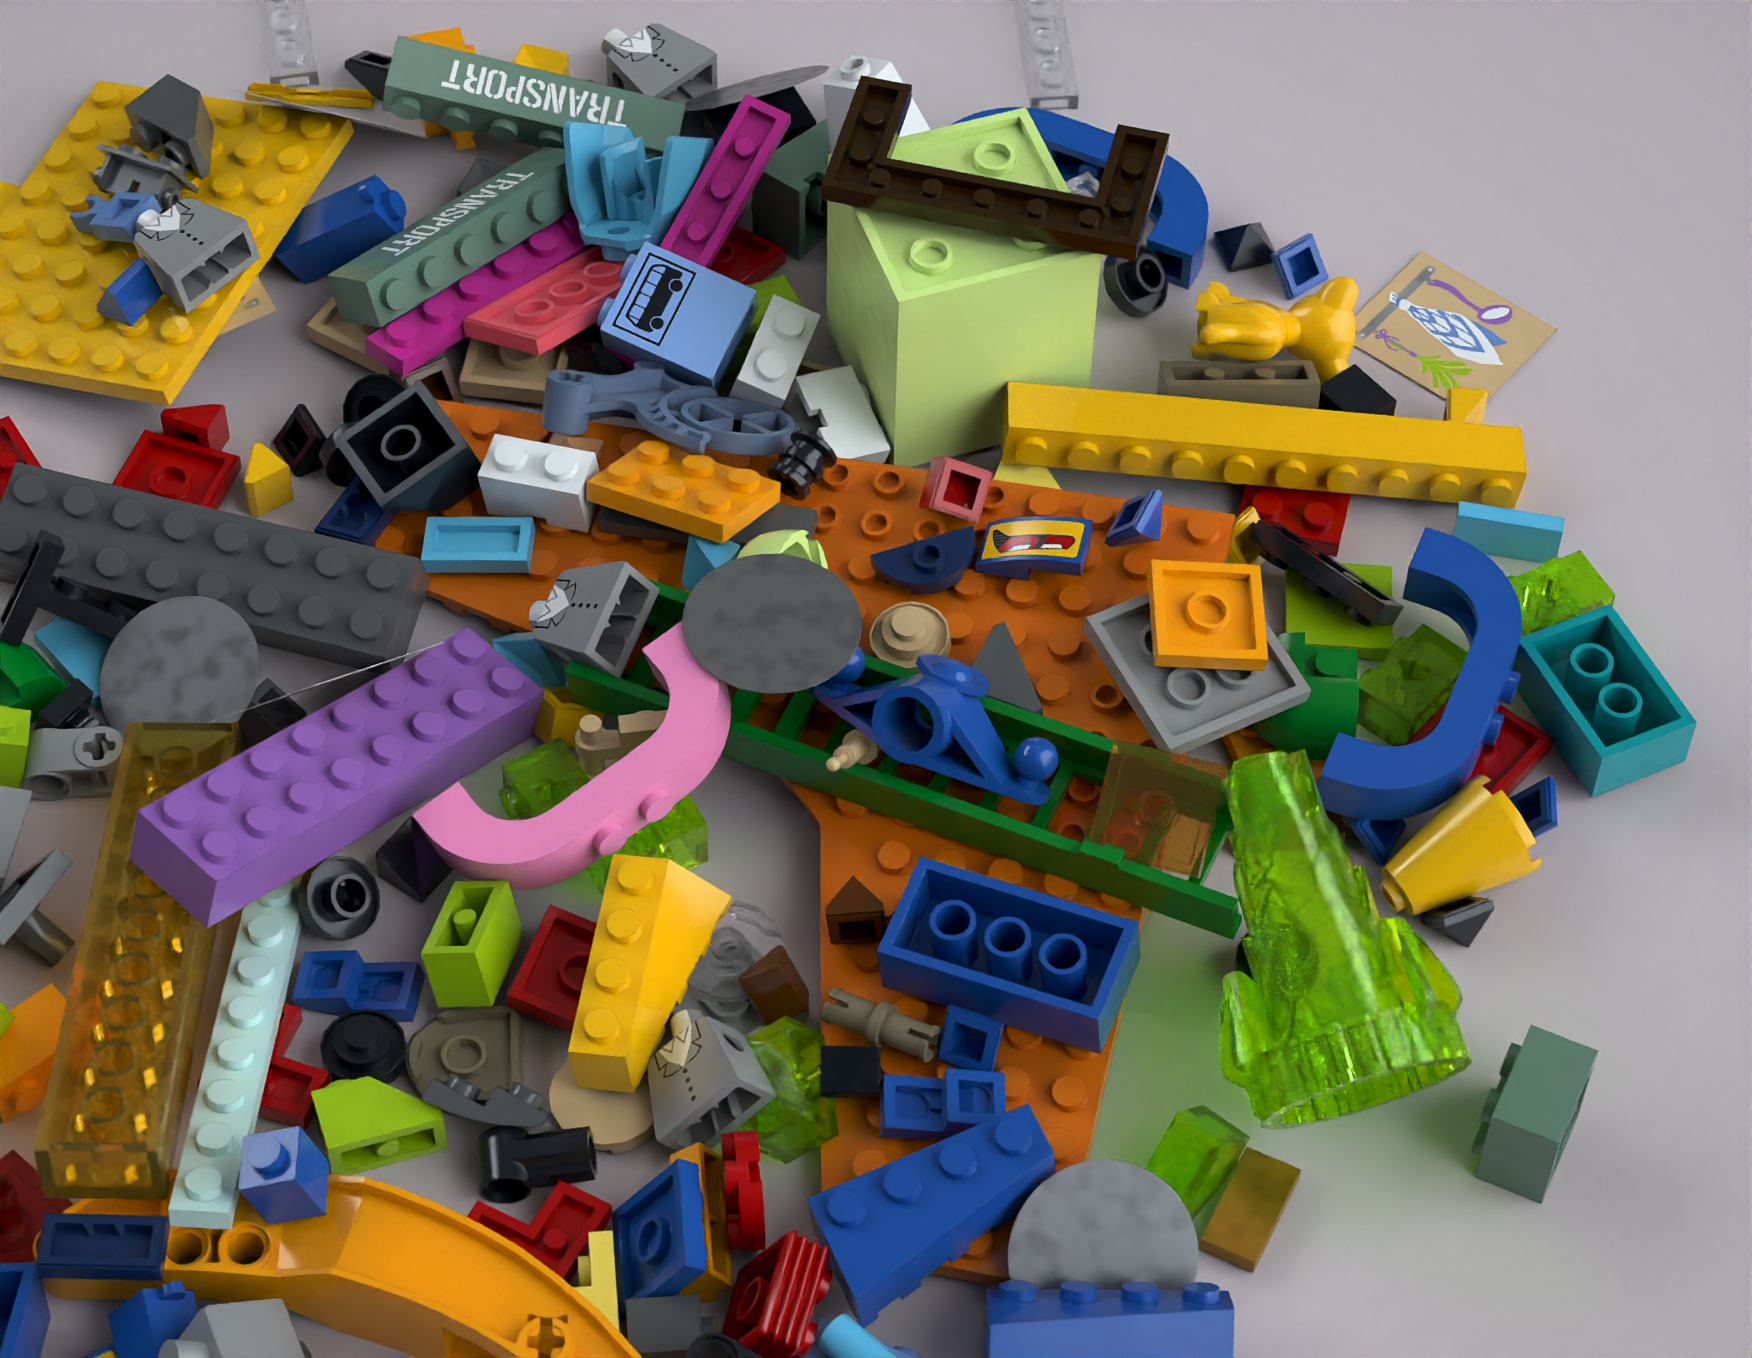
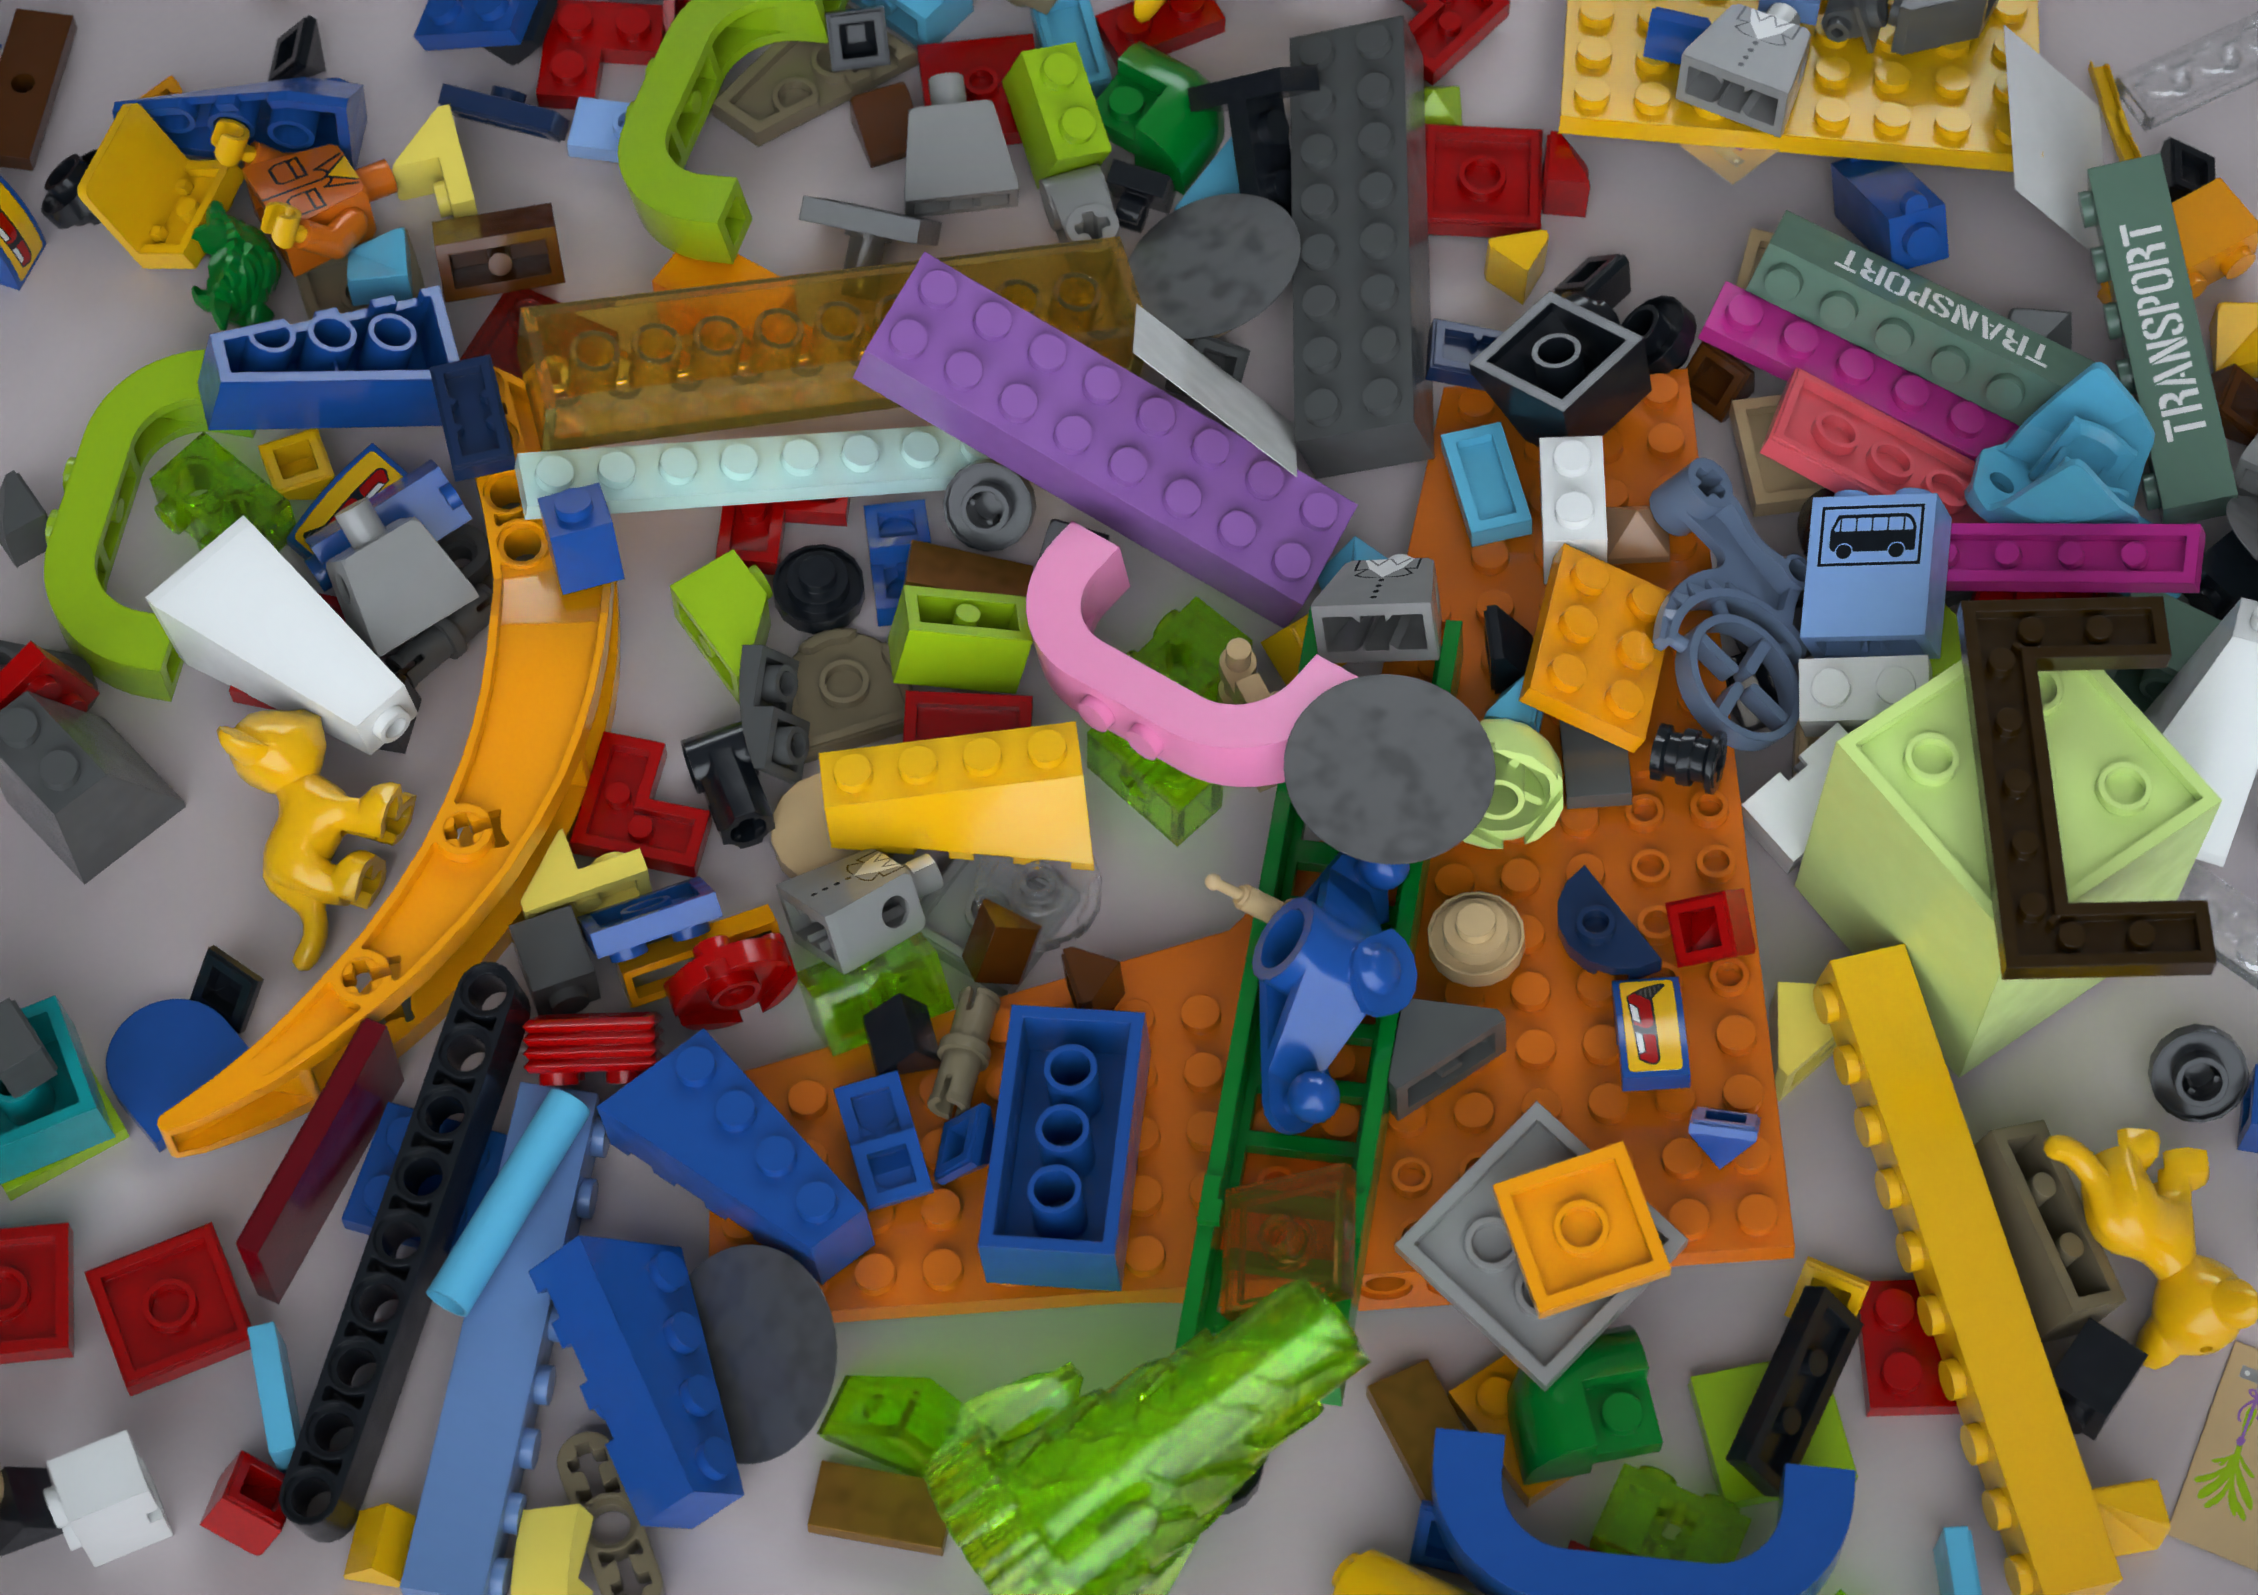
camera: 75 degrees right, 10 degrees up
(398, 940) = (962, 570): none -> pearl gold tile
(654, 563) = (1506, 647): none -> black slope

